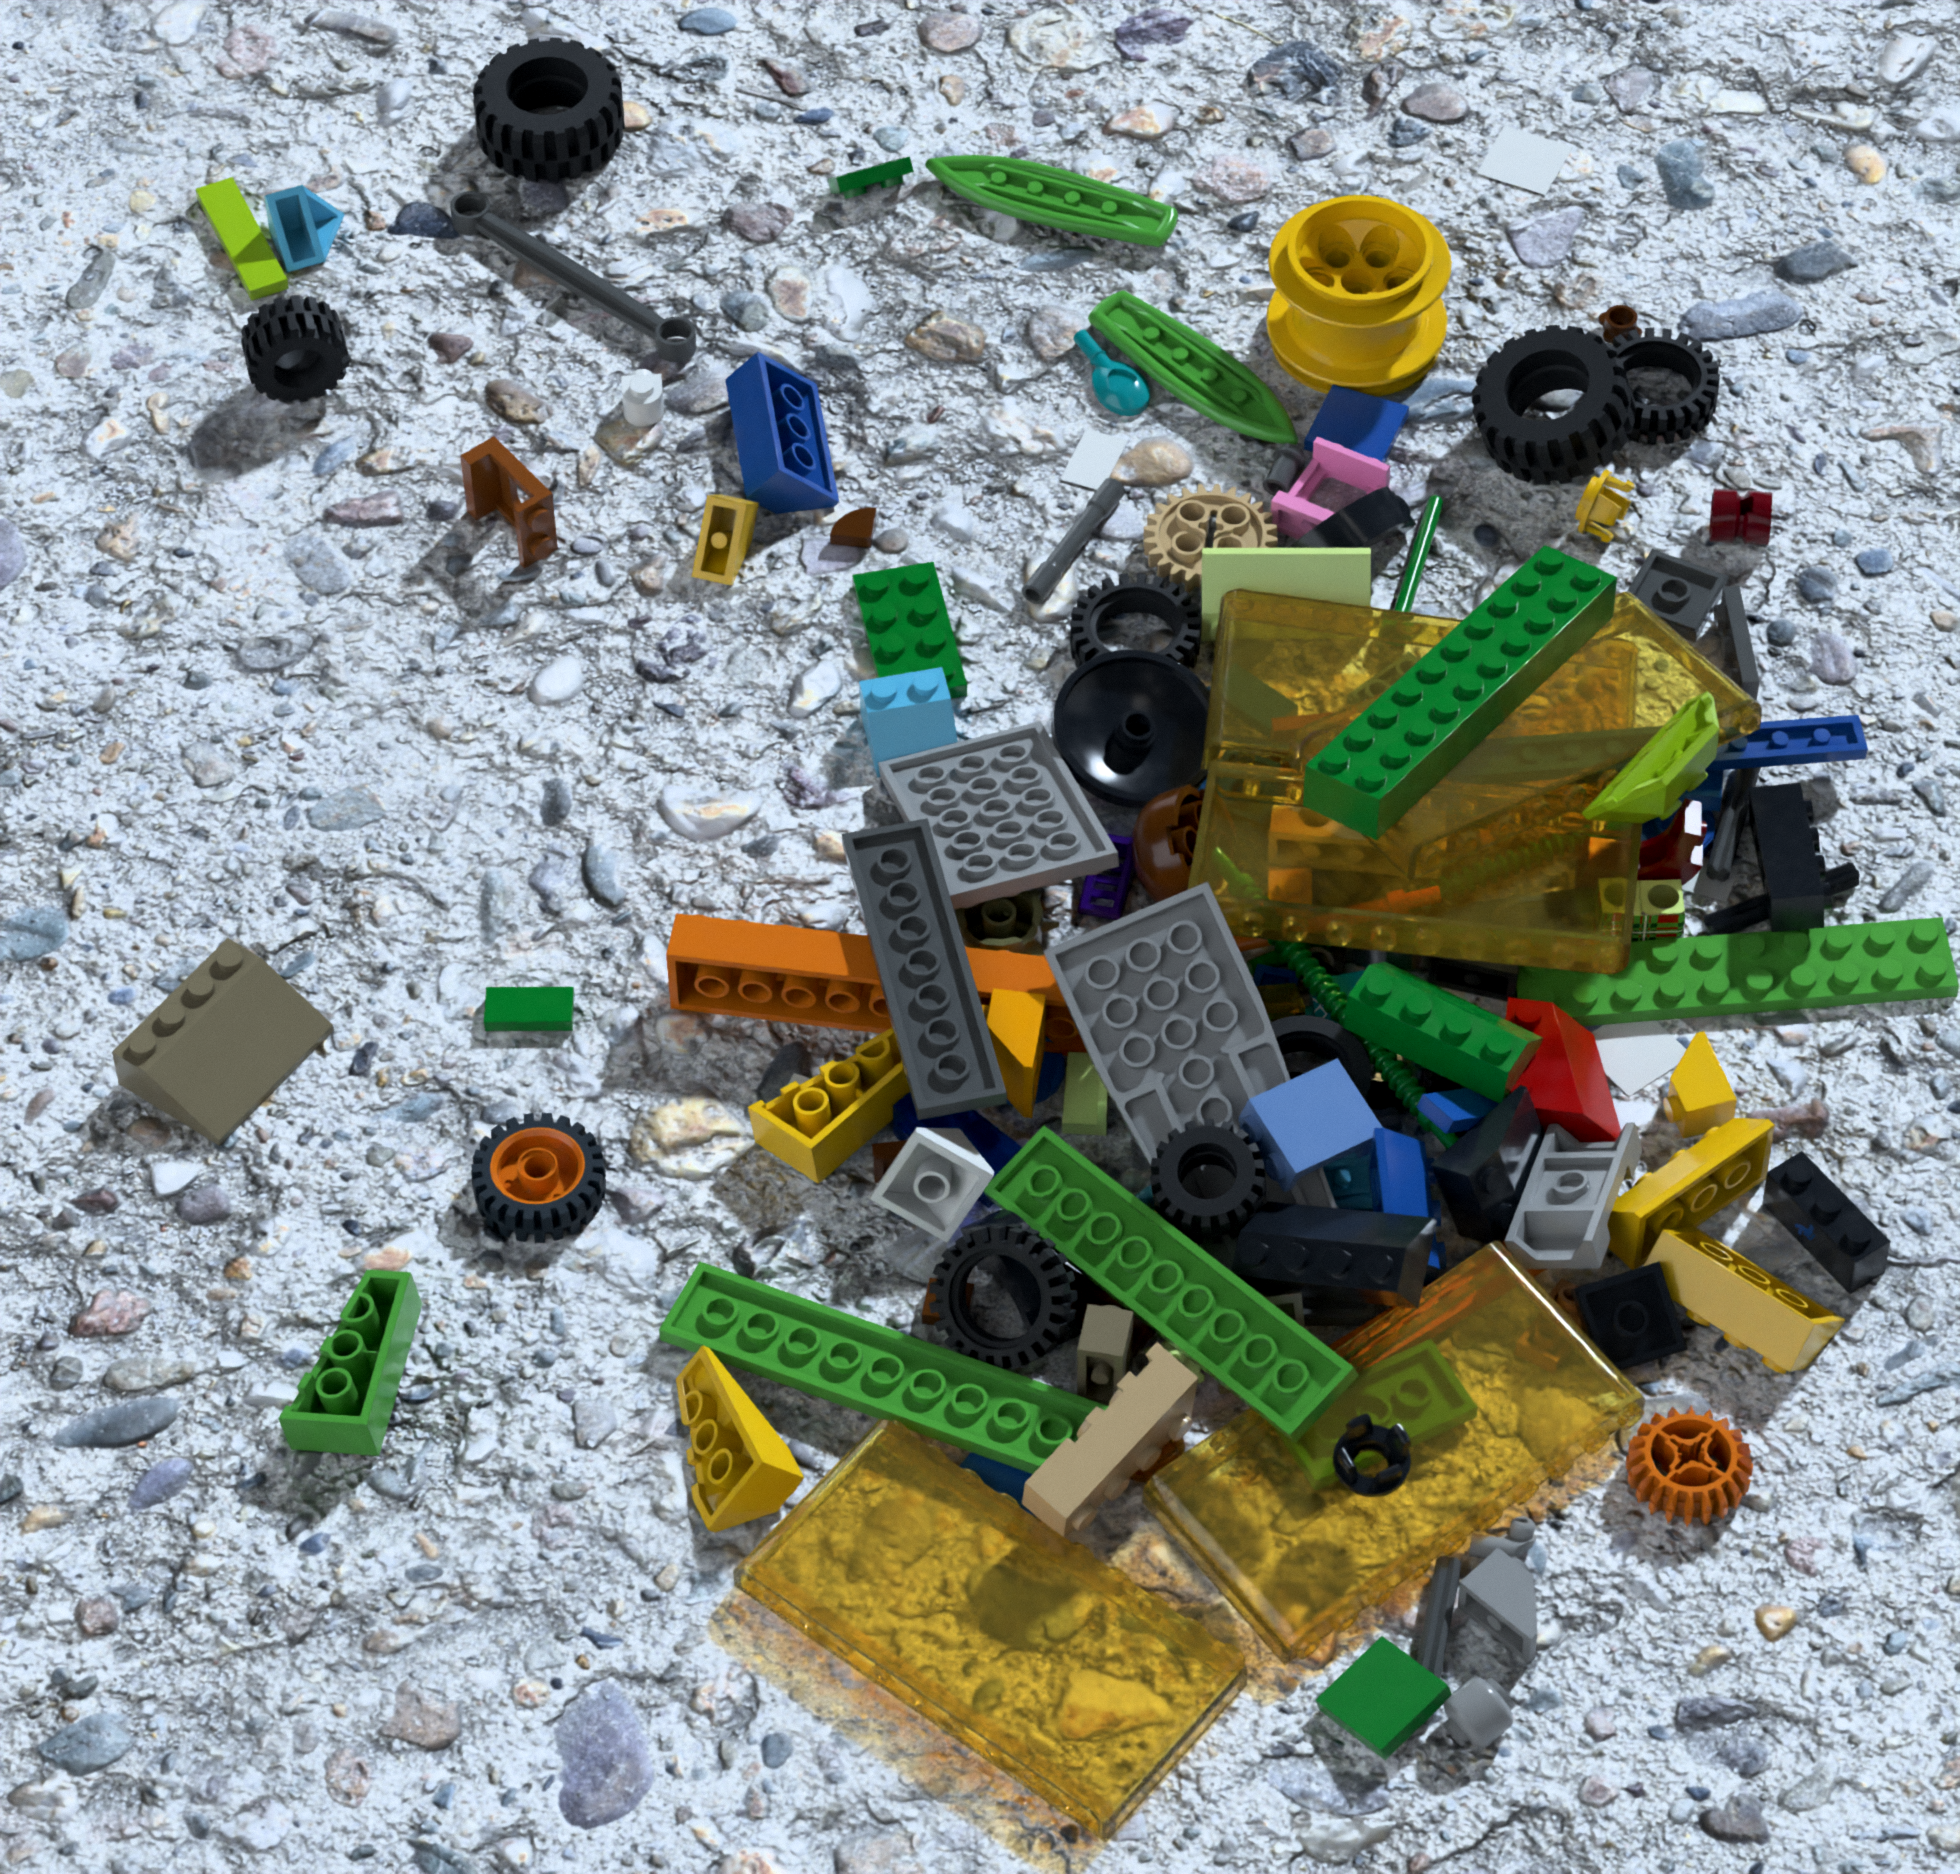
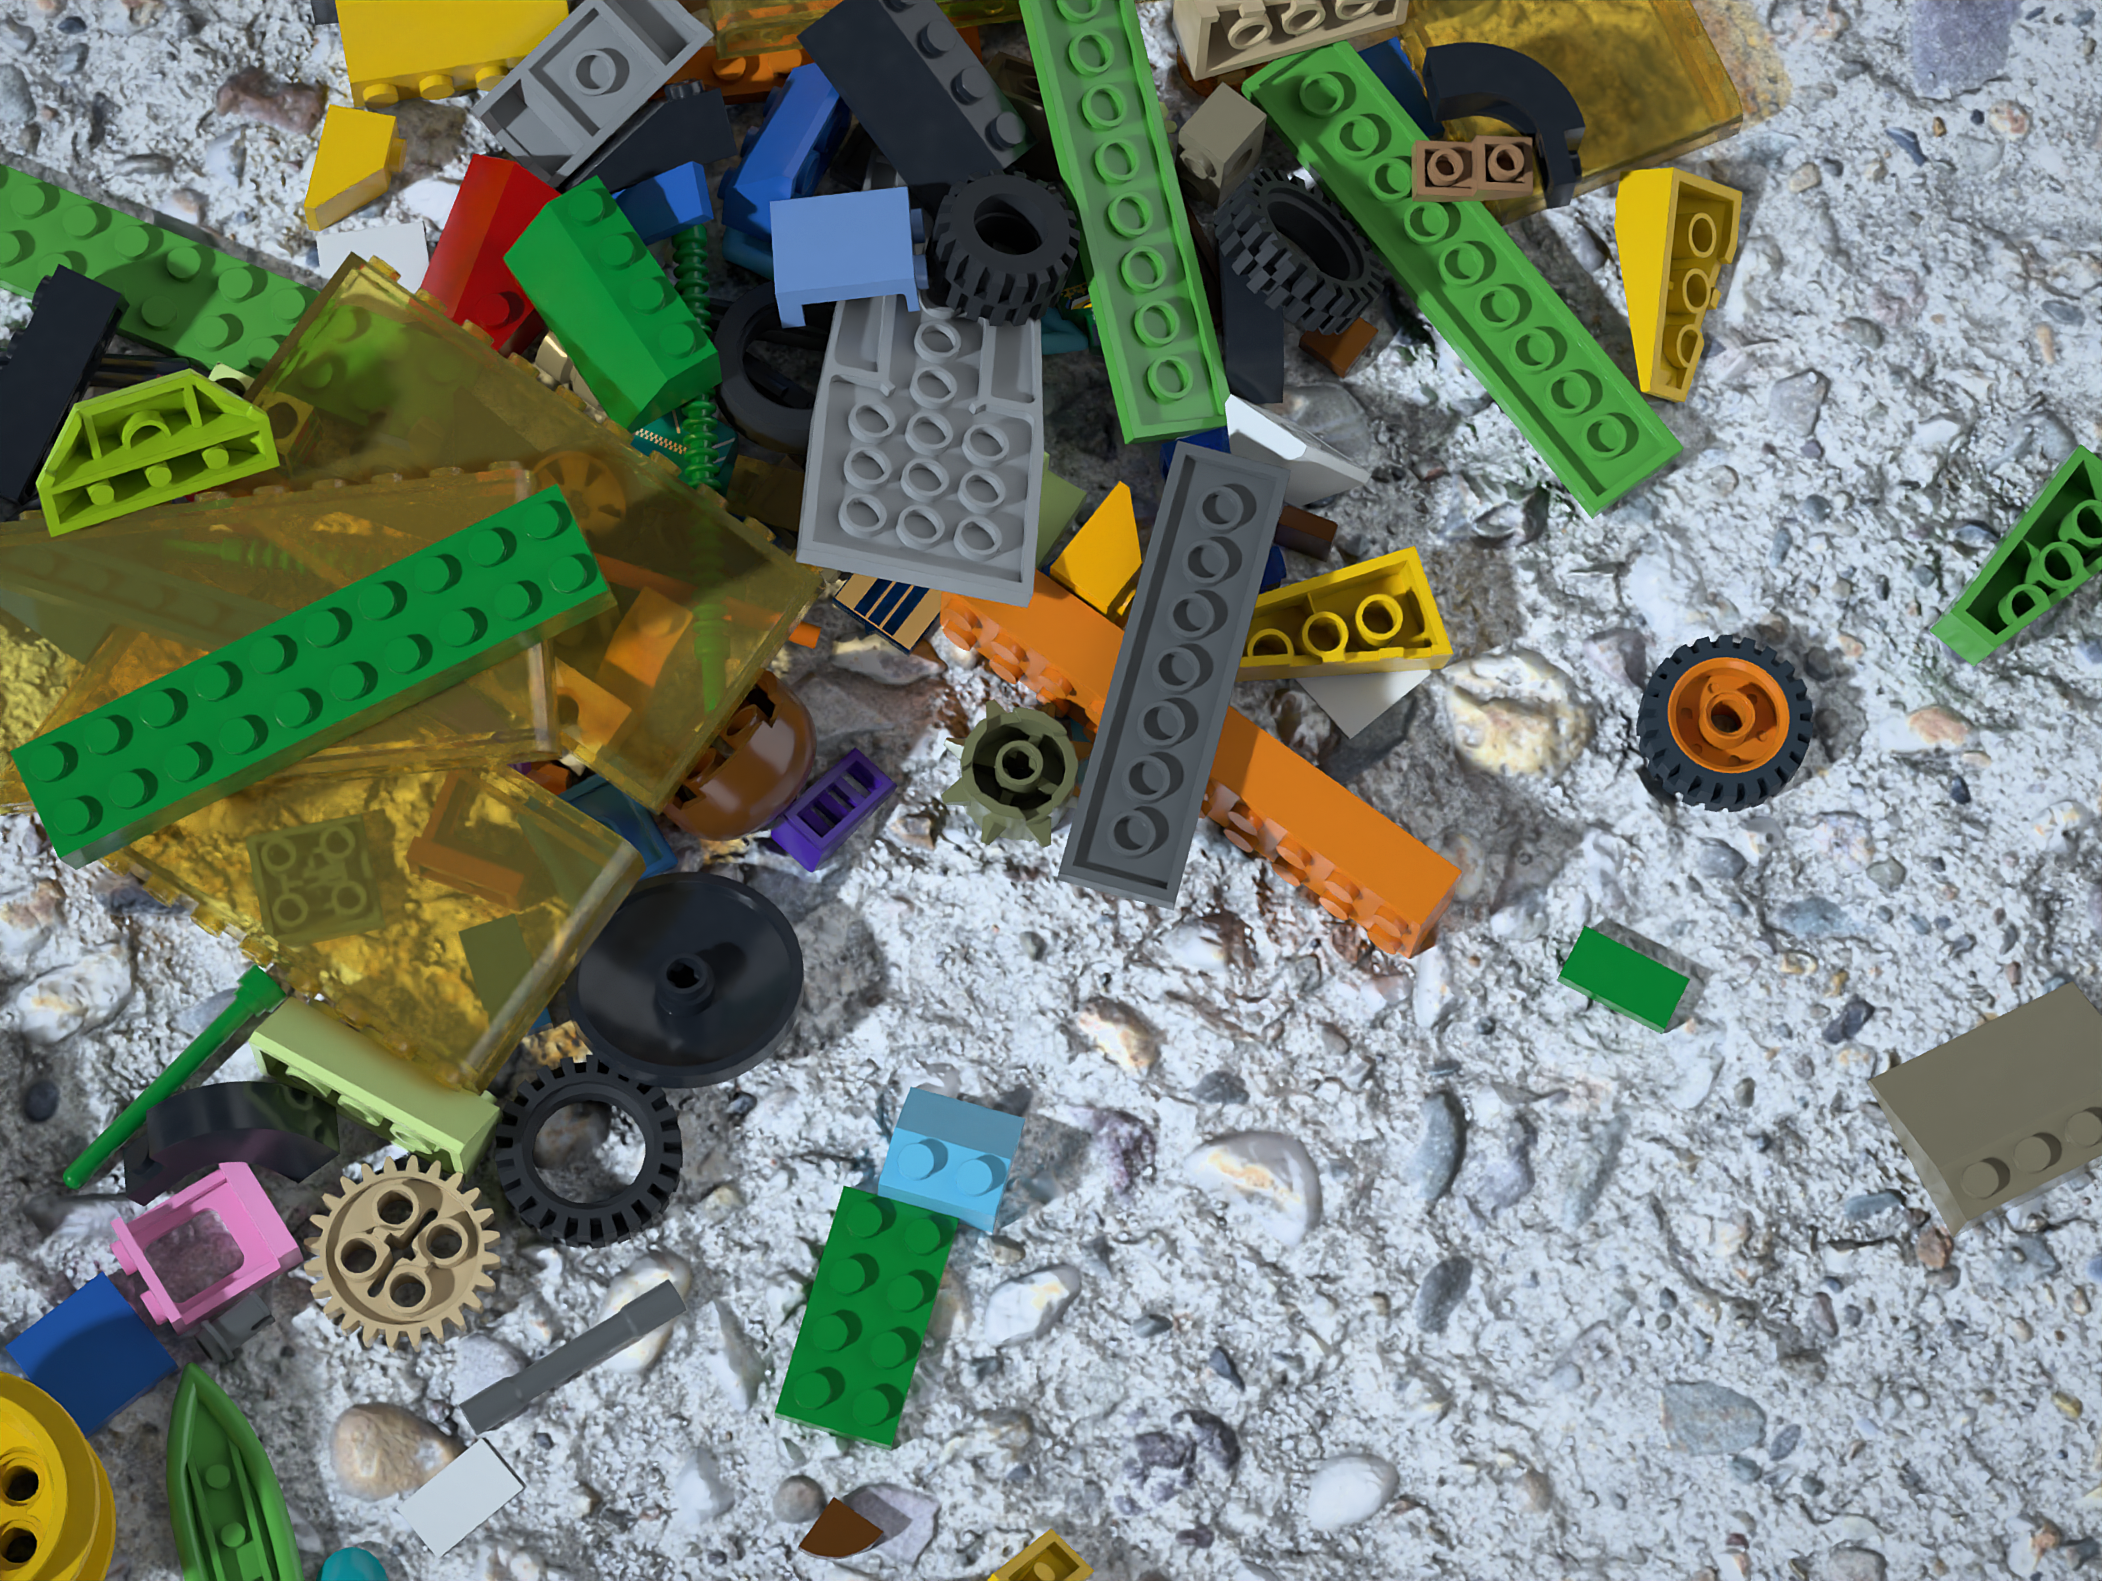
camera: 160 degrees left, 20 degrees up
(906, 1470) = (1519, 91): none -> black arch
(910, 1420) = (1472, 171): none -> medium nougat slope
(1001, 814) = (936, 918): light grey plate -> none

